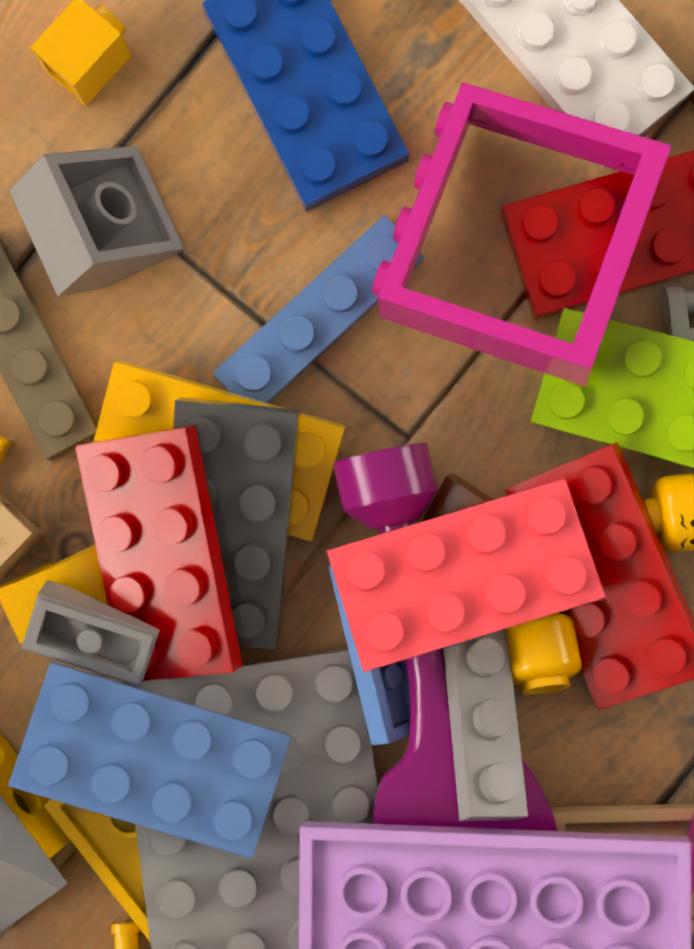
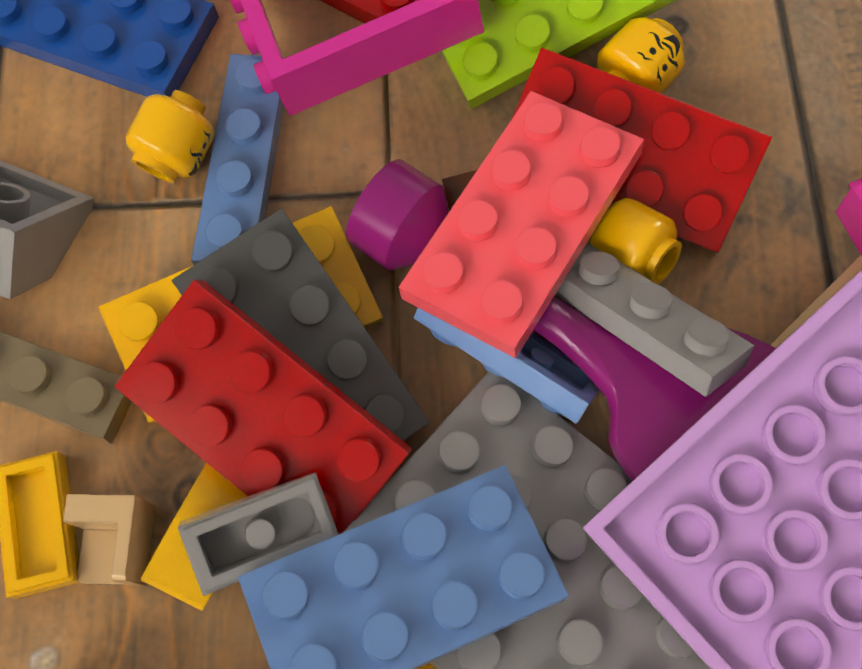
camera: 40 degrees left, 15 degrees down
(276, 255) = (170, 136): none -> yellow head

